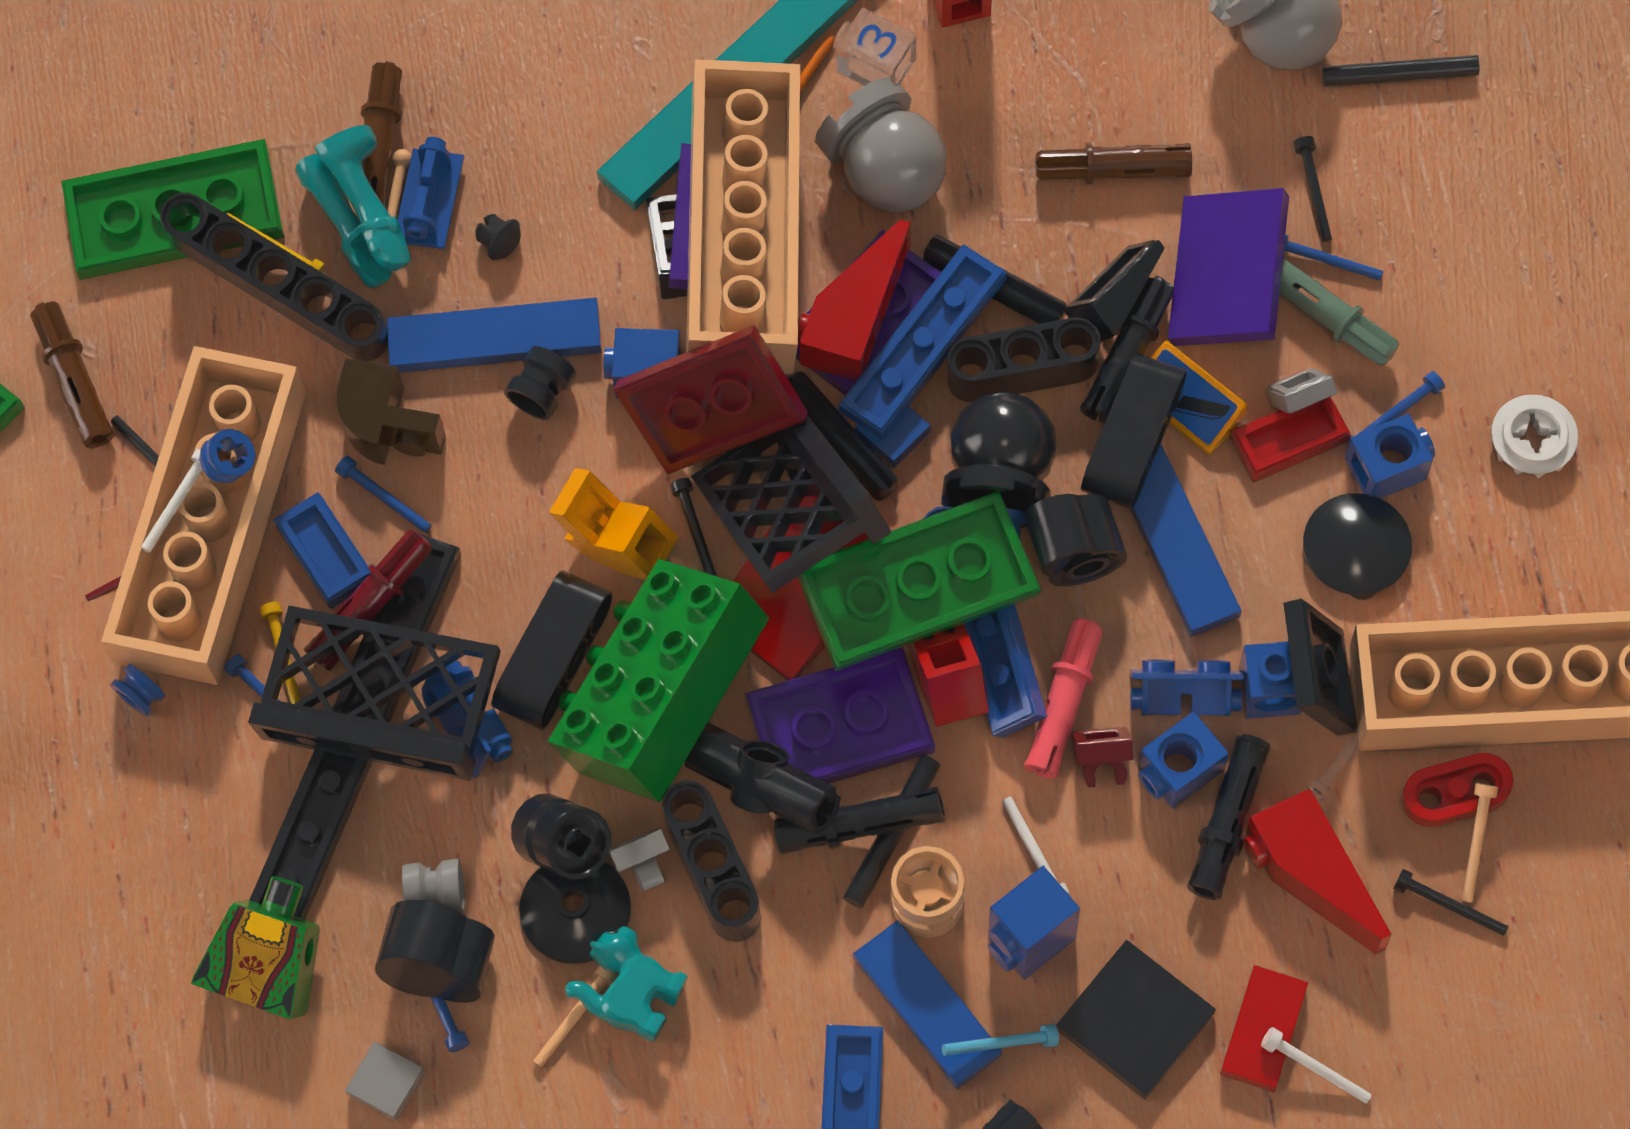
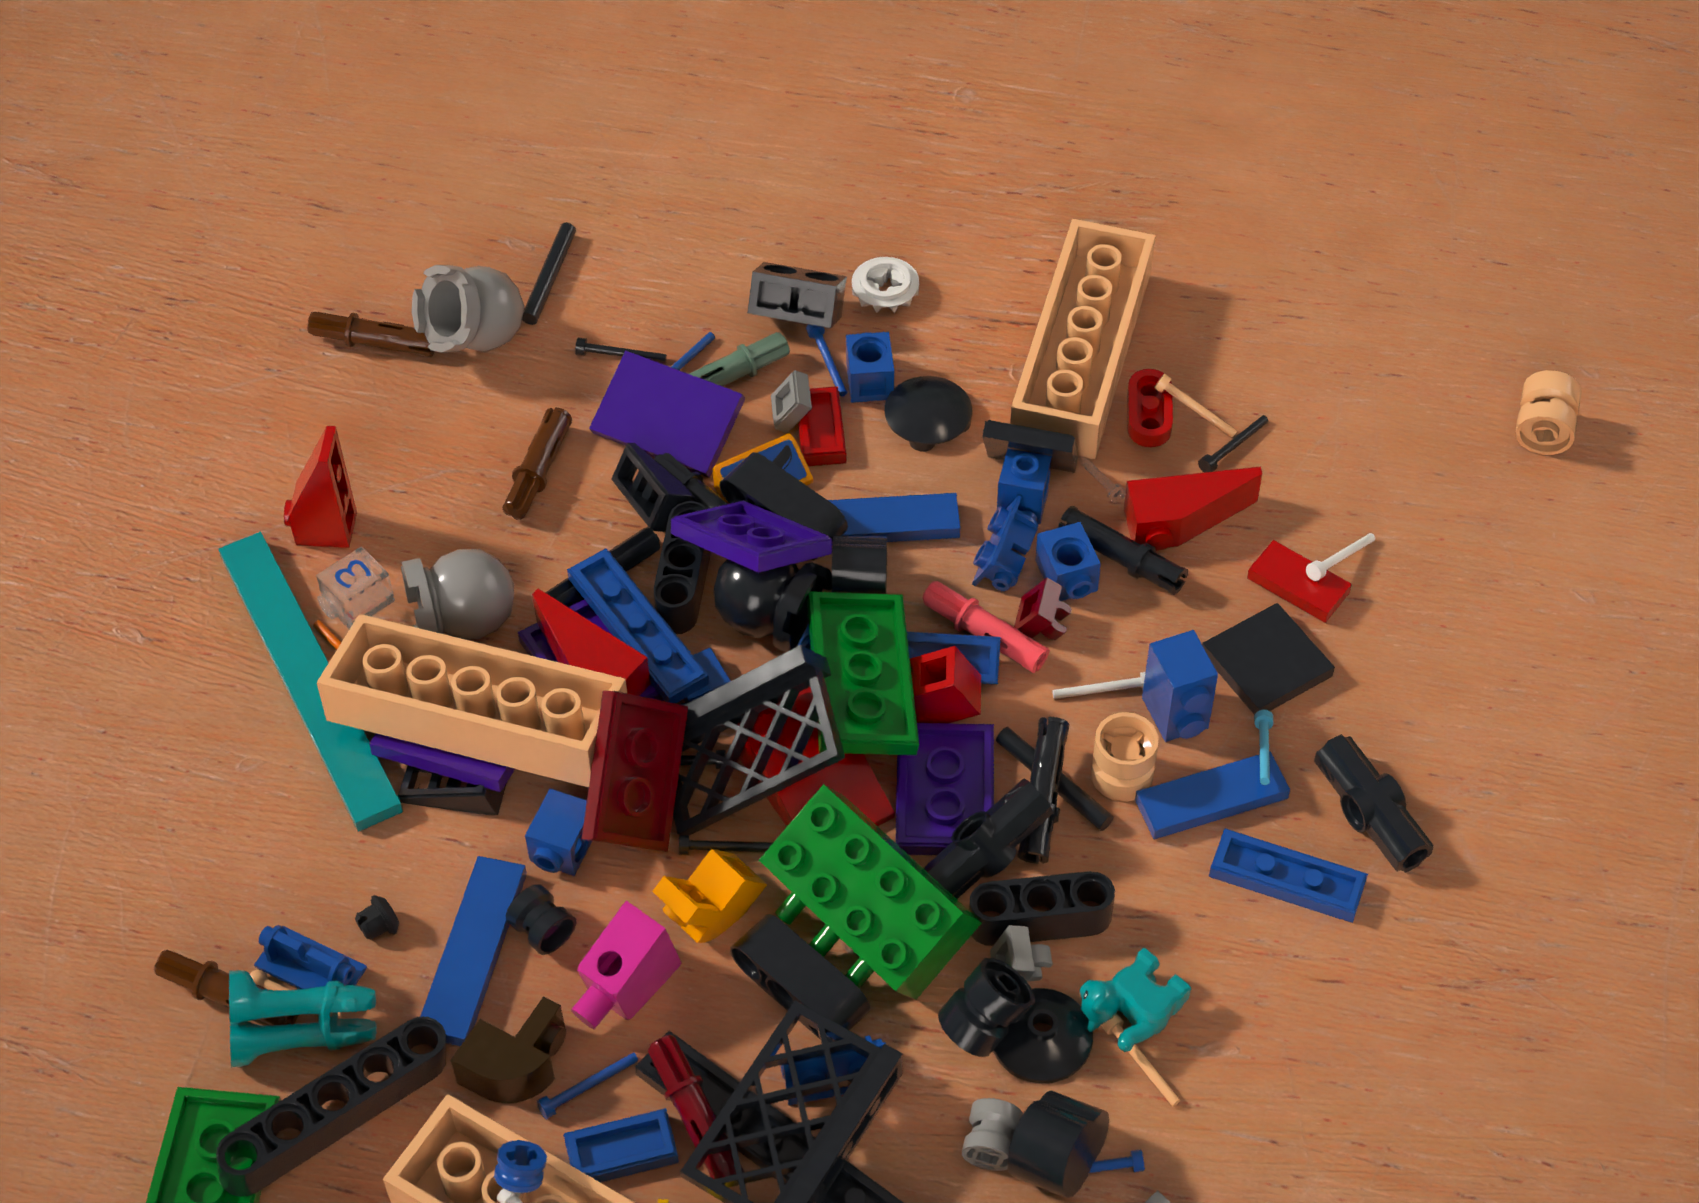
camera: 75 degrees left, 15 degrees down
(502, 478) = (625, 966): none -> dark pink torso
(1045, 406) = (751, 536): none -> dark purple tile
(1458, 341) = (797, 294): none -> brick

